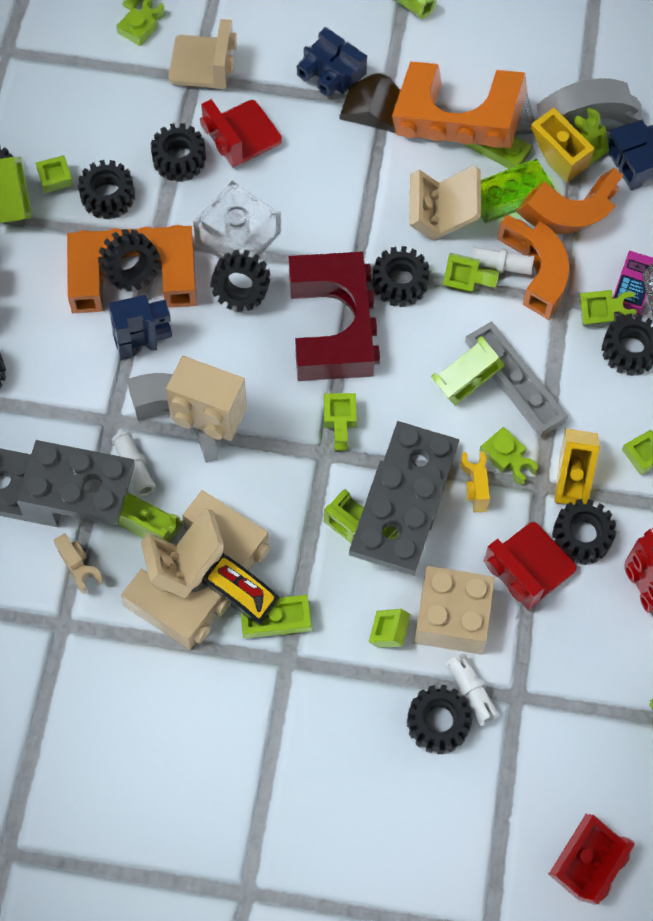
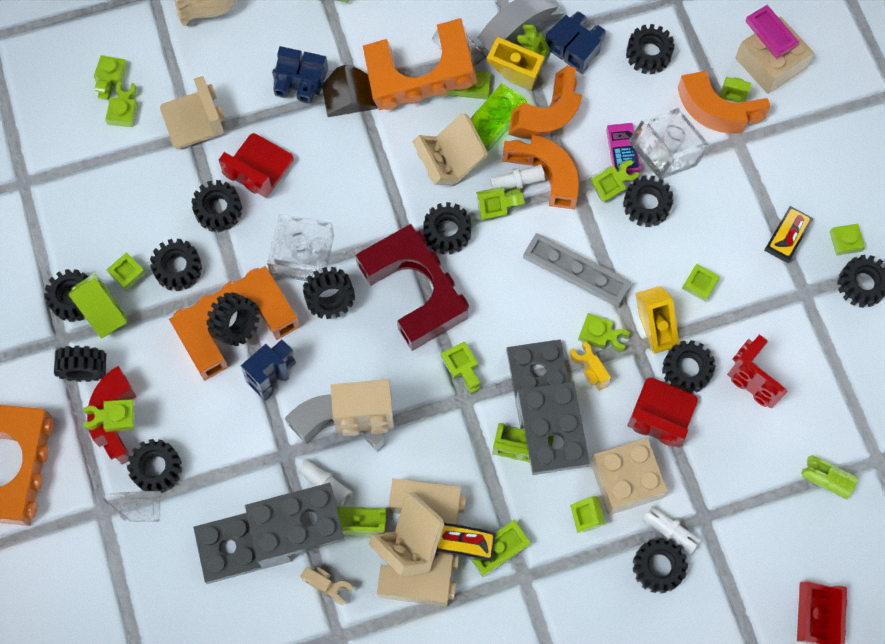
camera: 25 degrees left, 5 degrees up
(468, 371) = (539, 282): hinge -> none

